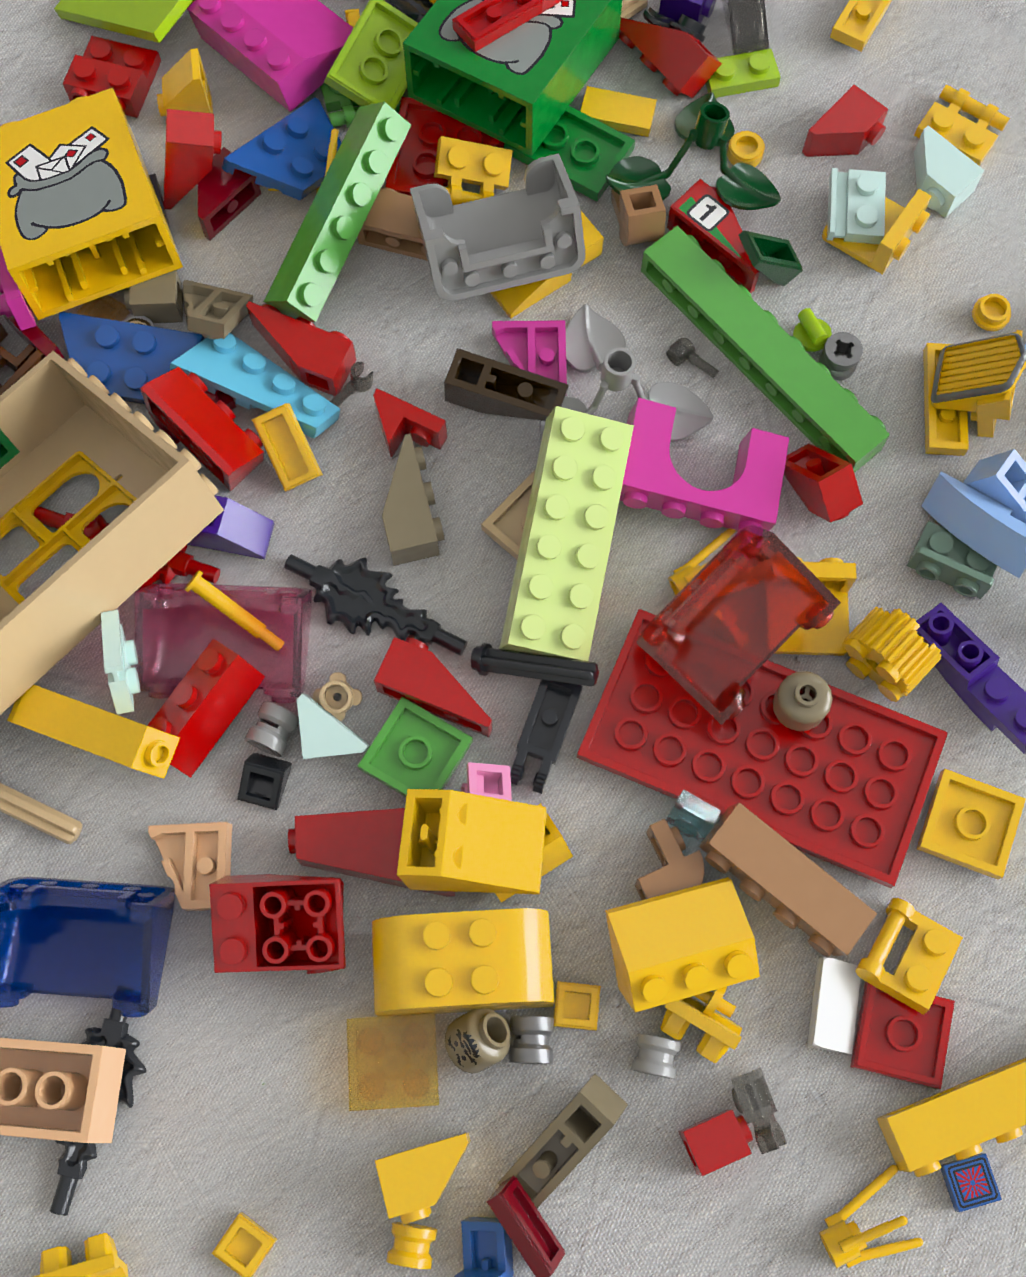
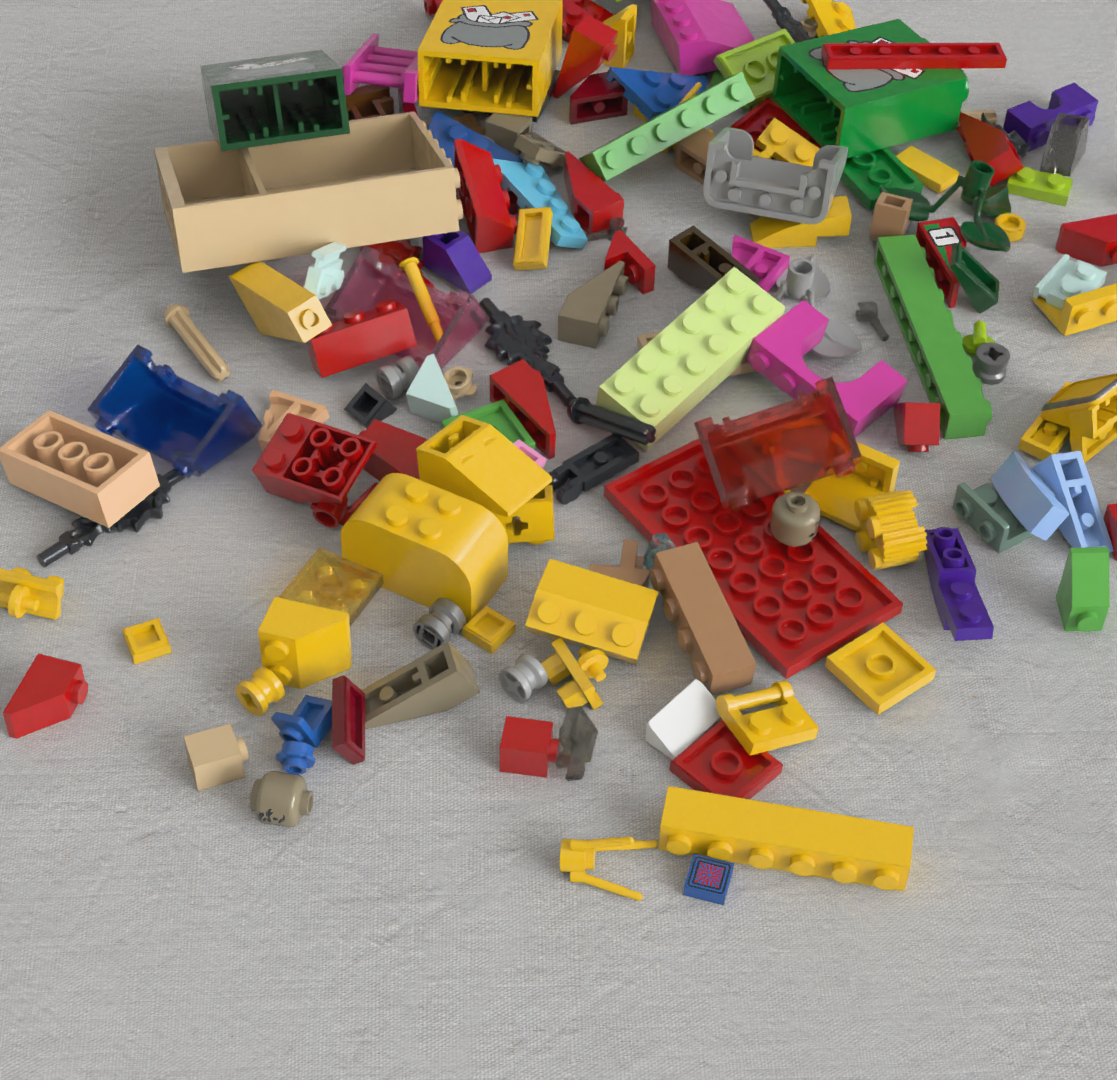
camera: 30 degrees right, 25 degrees down
(477, 1040) = (401, 600): dark tan head -> none

